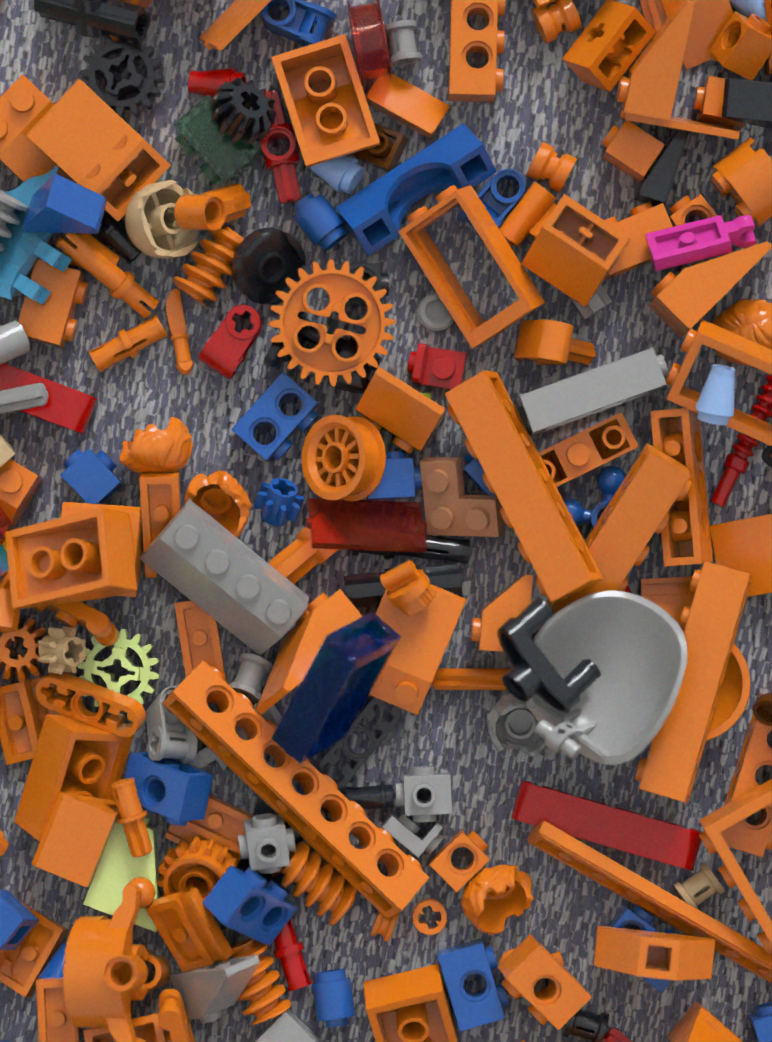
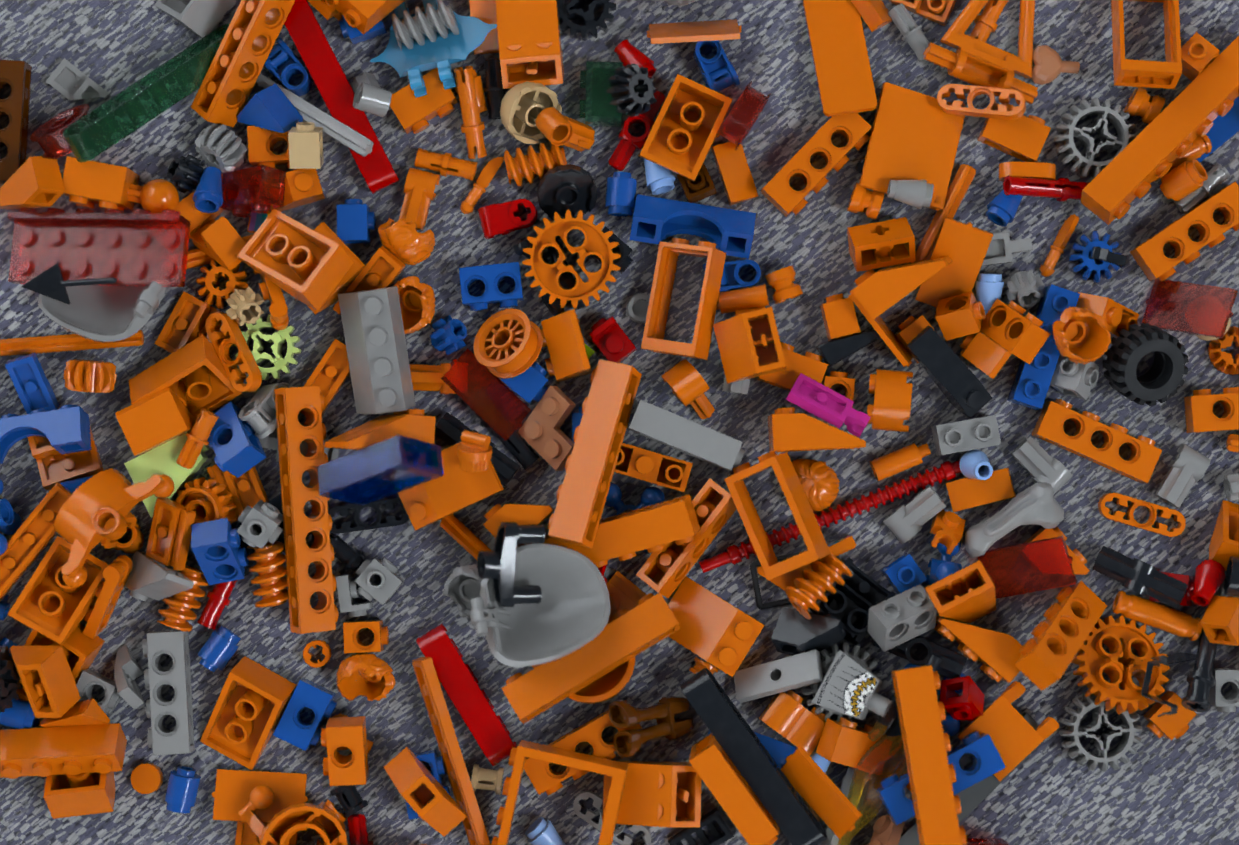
camera: 40 degrees right, 0 degrees up
(64, 208) = (477, 53): blue slope -> none
(127, 392) = (418, 195): none -> orange piece
(251, 675) = (340, 420): light grey bush -> none
(383, 926) = (285, 635): orange bush -> none
(402, 43) = (763, 134): light grey bush -> none
(717, 396) = (753, 503): light blue cone -> none

